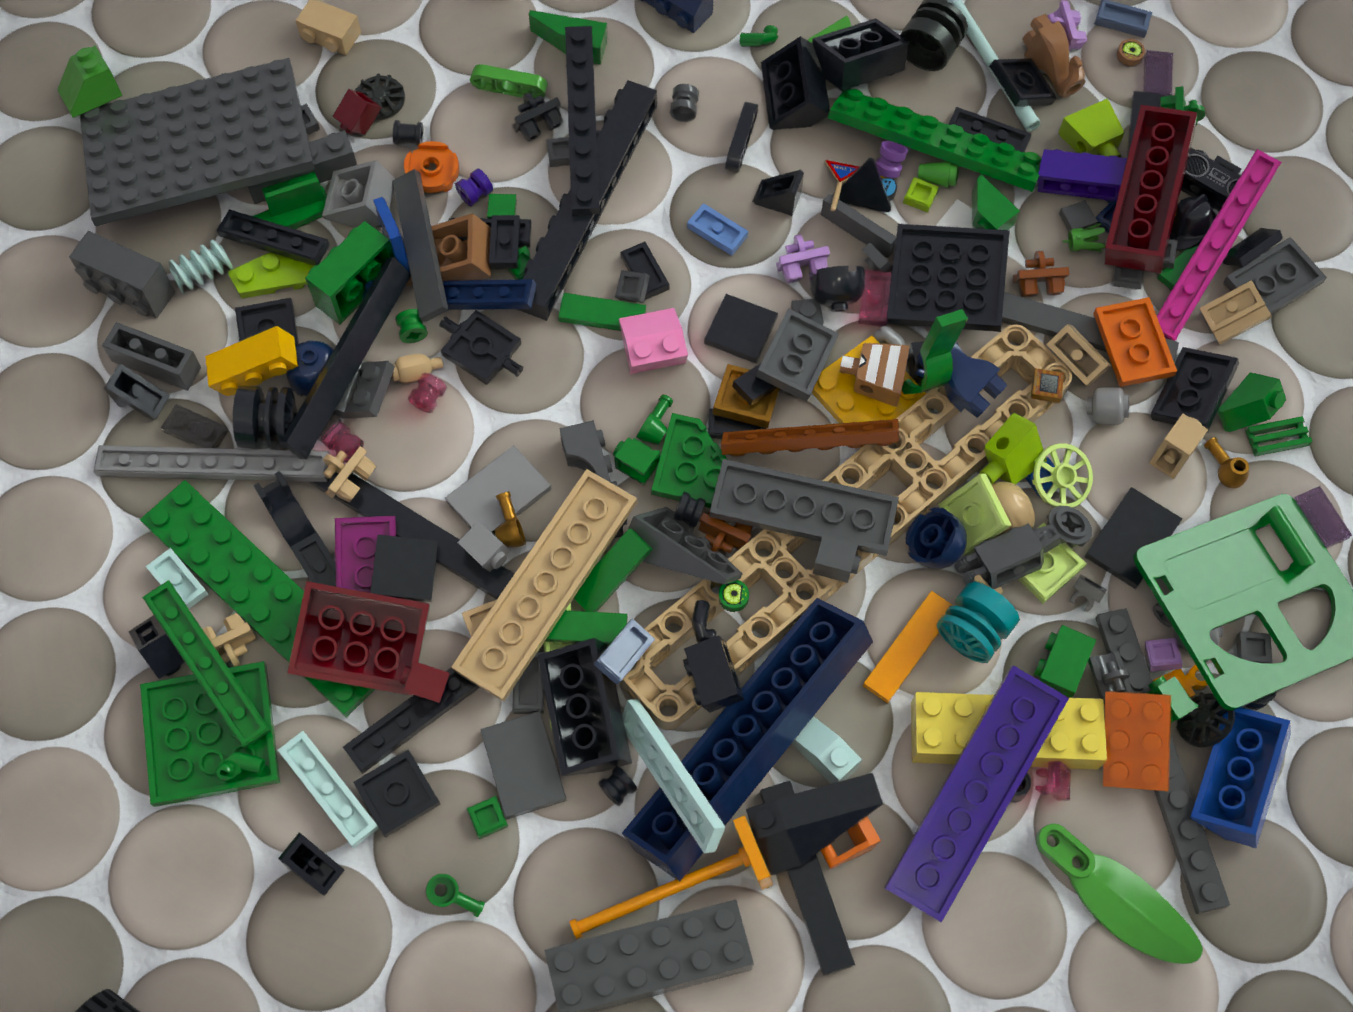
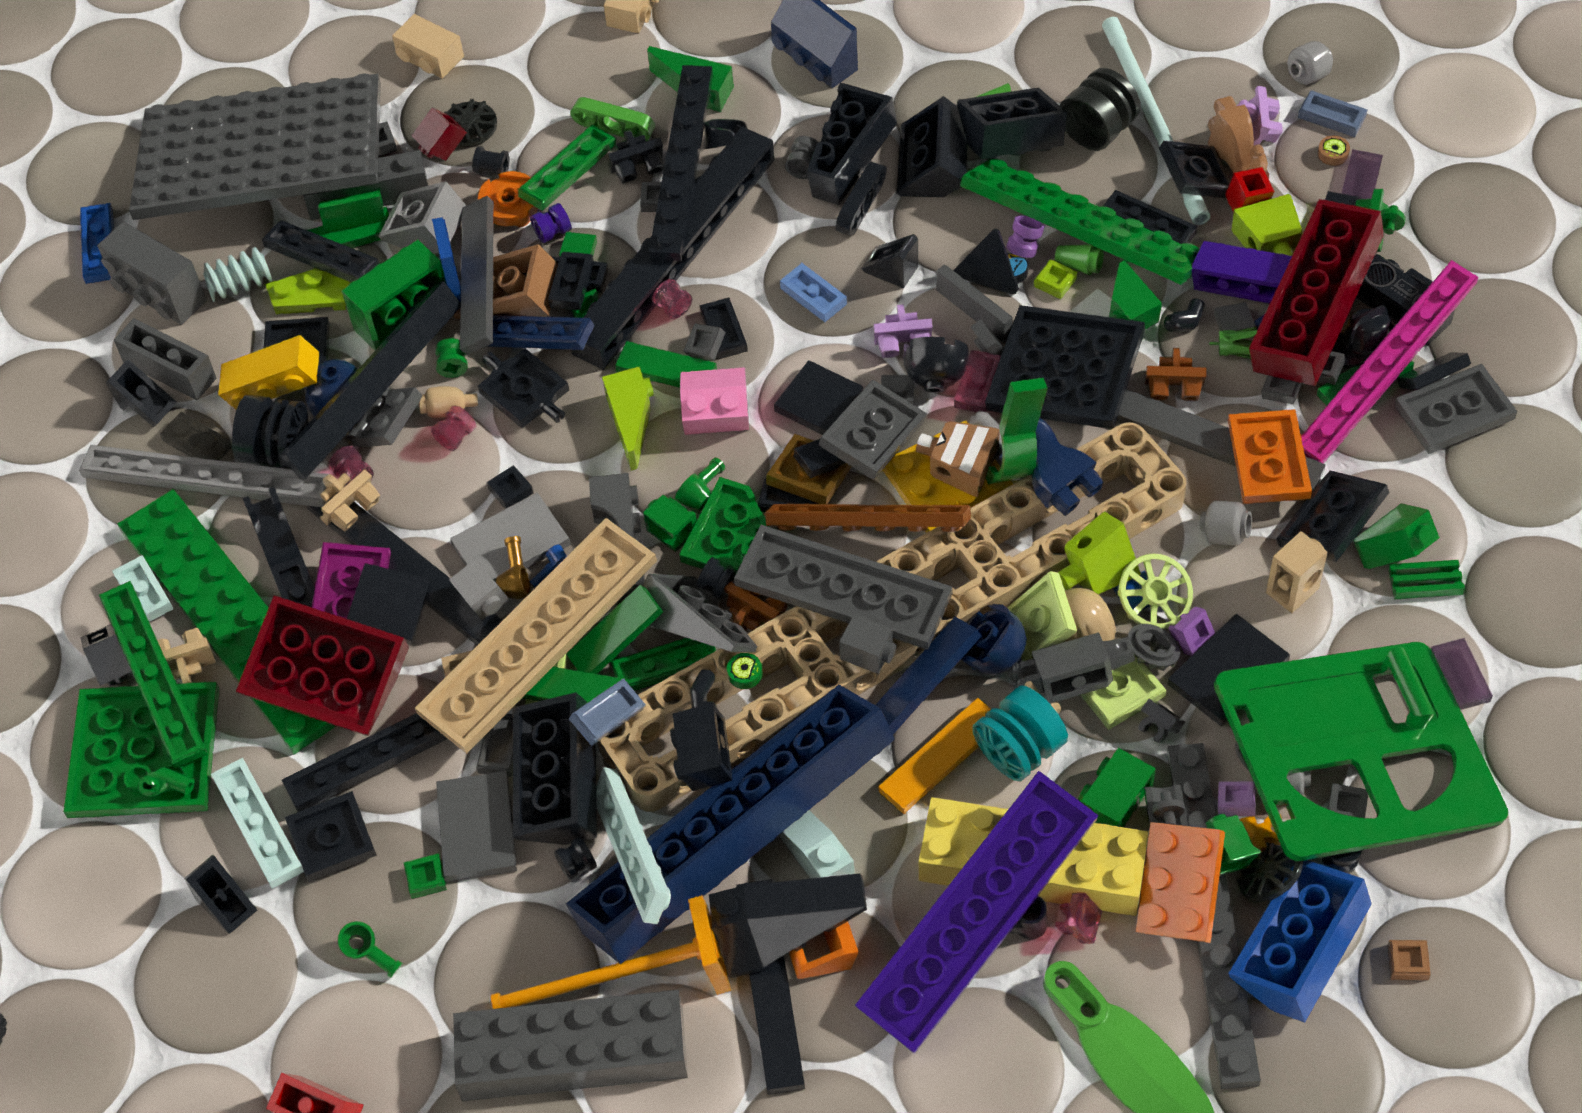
camera: 15 degrees right, 10 degrees down
(60, 243) = (96, 225): none -> blue tile
(87, 82) = (158, 78): bright green slope -> none
(424, 681) = (382, 718): dark red brick -> none
(477, 132) = (567, 167): none -> green tile
(488, 443) = (510, 487): none -> black plate
(544, 508) = (555, 556): none -> blue hand
(578, 353) = (630, 408): none -> lime slope
(596, 248) = (672, 299): none -> clear pink wheel
(608, 86) = (721, 132): none -> black helmet
(653, 593) = (660, 662): none -> green tile
(723, 82) = (850, 139): none -> black wedge
(759, 39) = (908, 99): green arm -> none
(841, 173) = (964, 246): piece -> none
(887, 574) = (927, 672): none -> dark blue tile
(1038, 221) = (1185, 320): none -> black arm
(1047, 385) = (1153, 489): tile -> none
(1072, 98) = (1249, 188): none -> red brick
(1078, 355) = (1199, 463): tan brick -> none
(1100, 507) = (1192, 630): none -> medium lavender tile
(1227, 473) = (1357, 616): pearl gold bar -> none
(1235, 312) = (1397, 438): tan plate -> none
(1327, 778) = (1408, 960): none -> medium nougat tile

